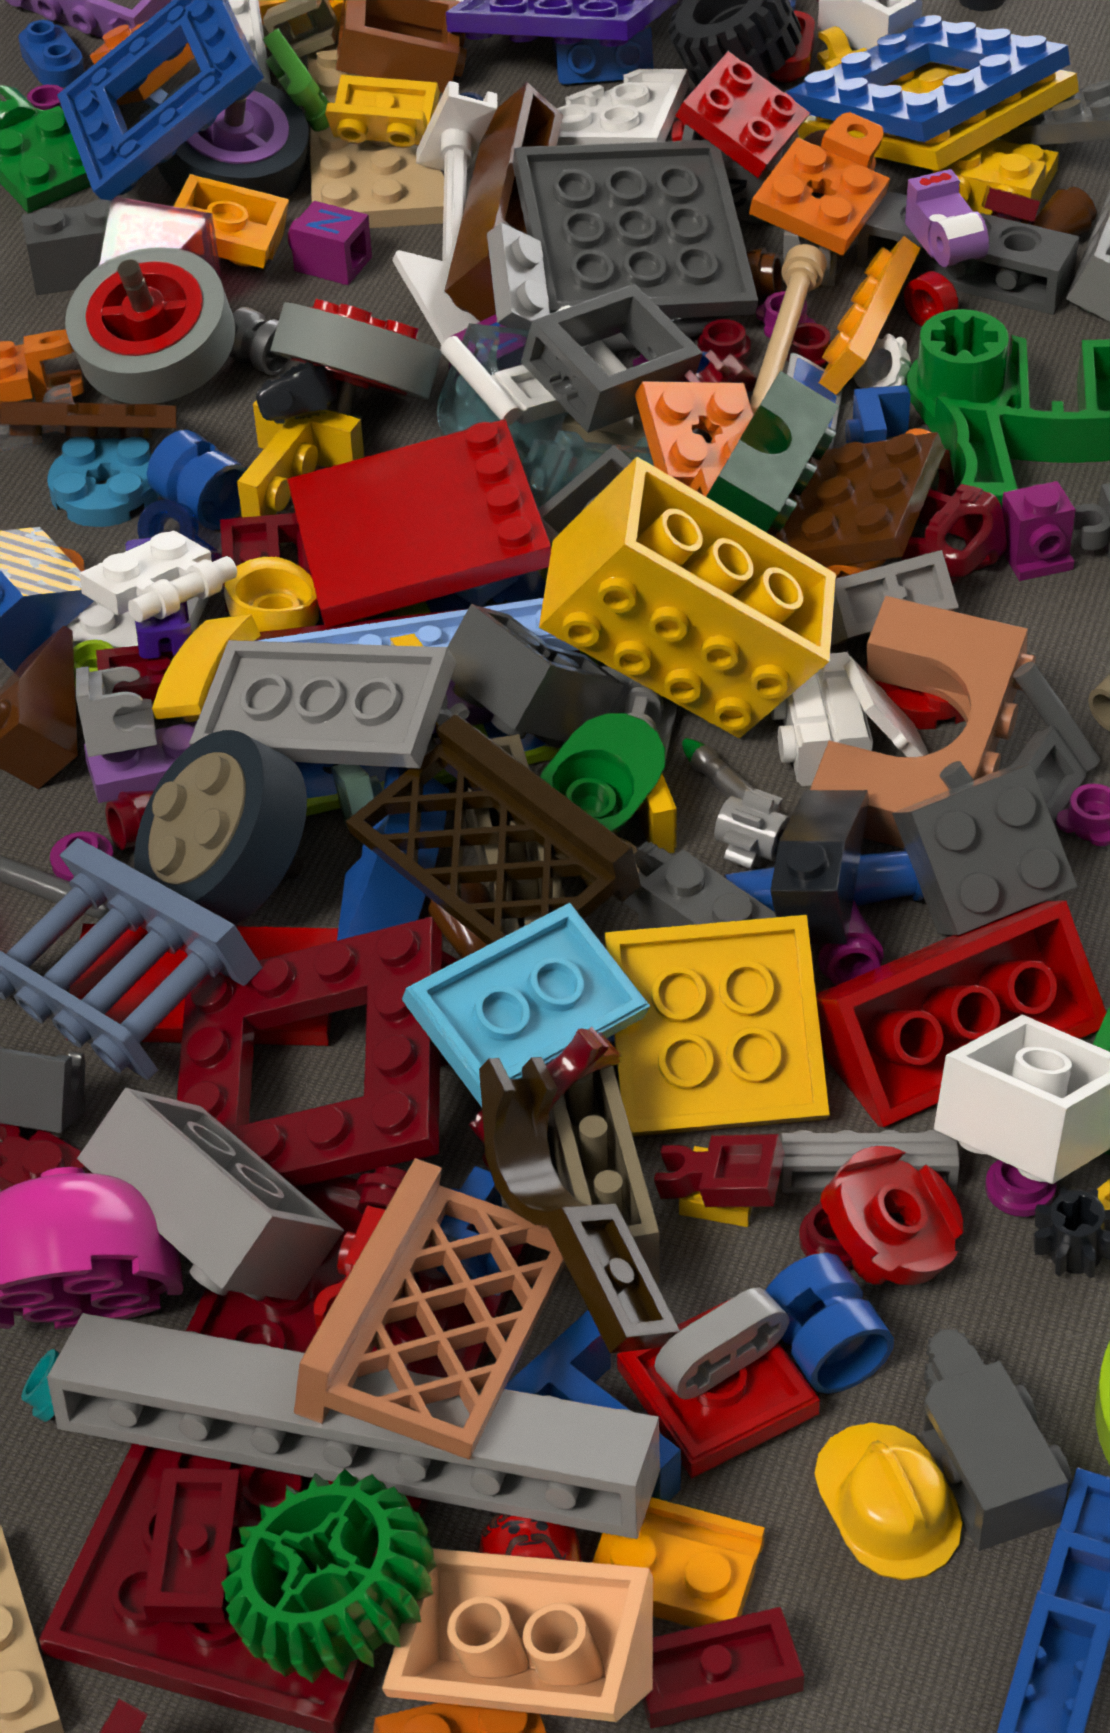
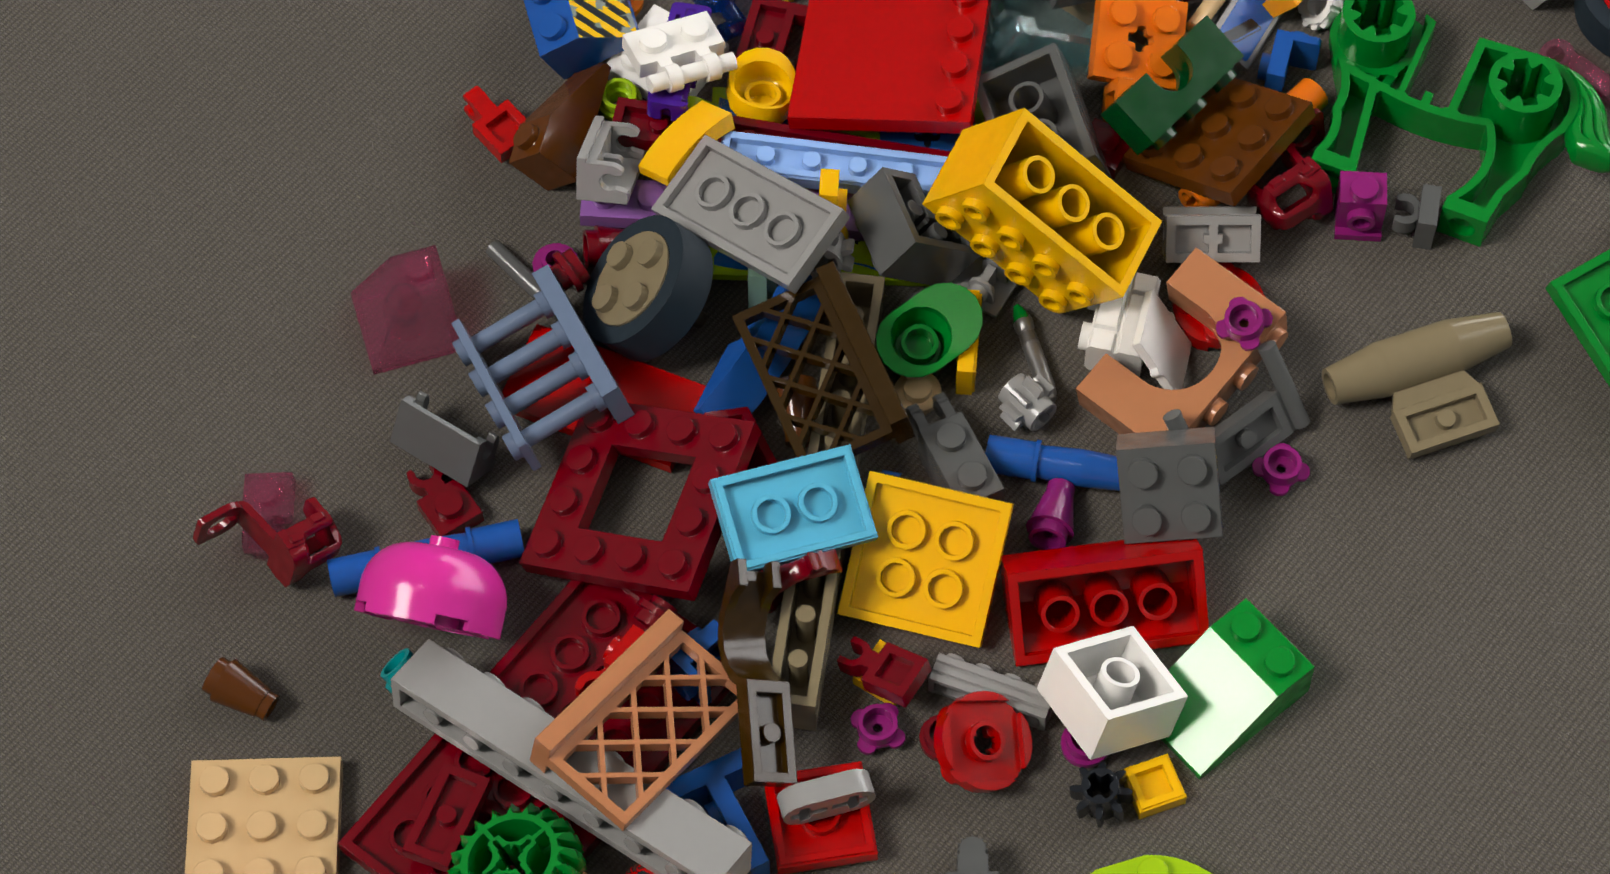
camera: 20 degrees right, 15 degrees up
(110, 838) = (569, 270): none -> dark red plate
(213, 1197) = (536, 585): light grey brick -> none
(746, 1236) = (884, 716): none -> magenta plate
(821, 862) = (1051, 454): black slope -> none
(830, 1326) = (905, 800): blue wheel -> none
(986, 636) = (1240, 310): none -> magenta plate

